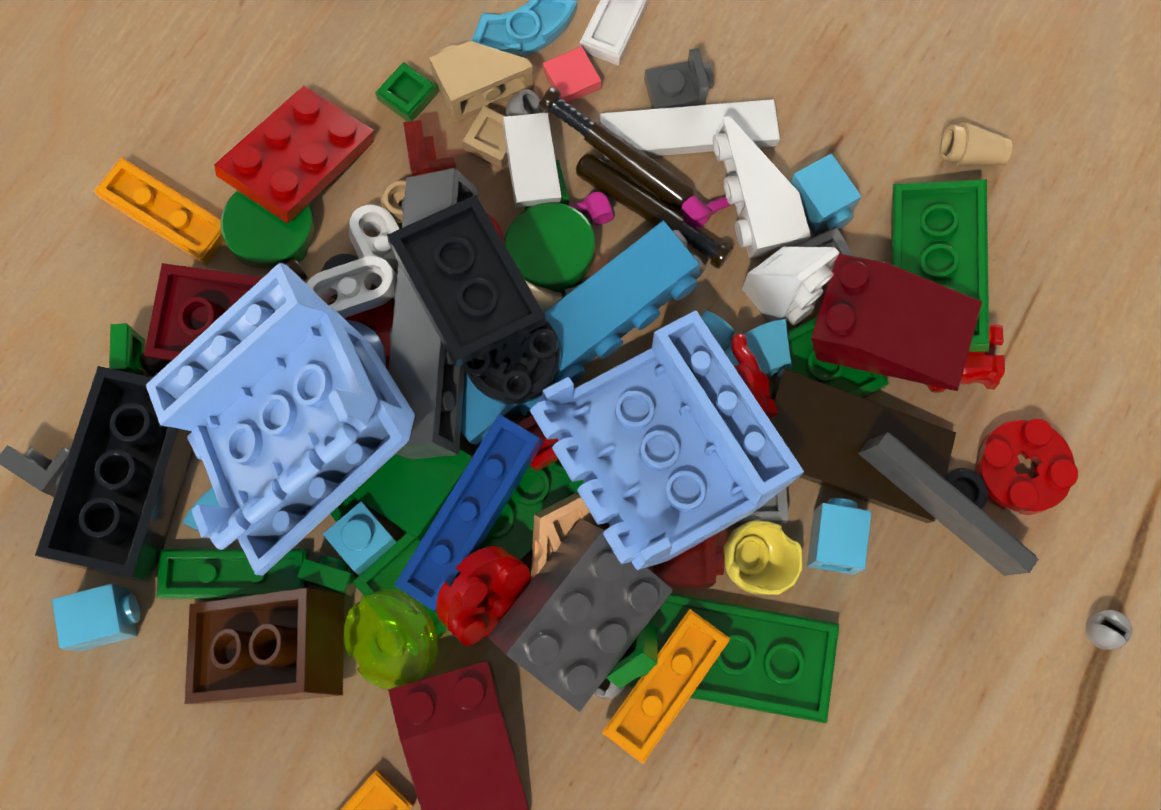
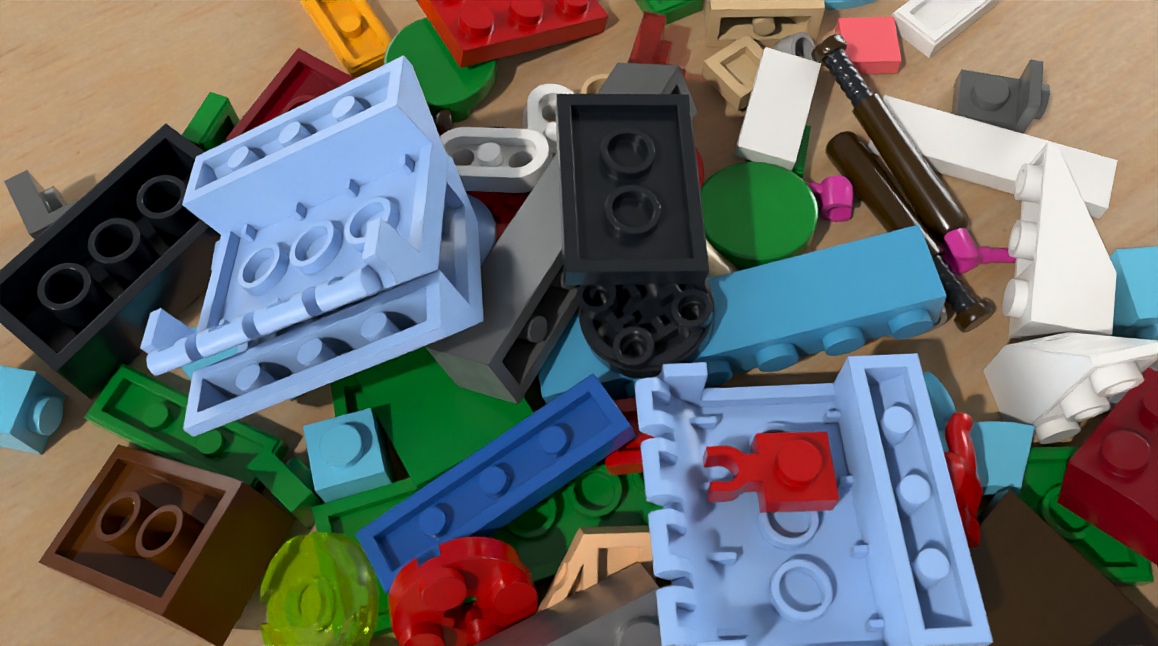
camera: 30 degrees right, 10 degrees down
(644, 421) = (784, 469): none -> red plate

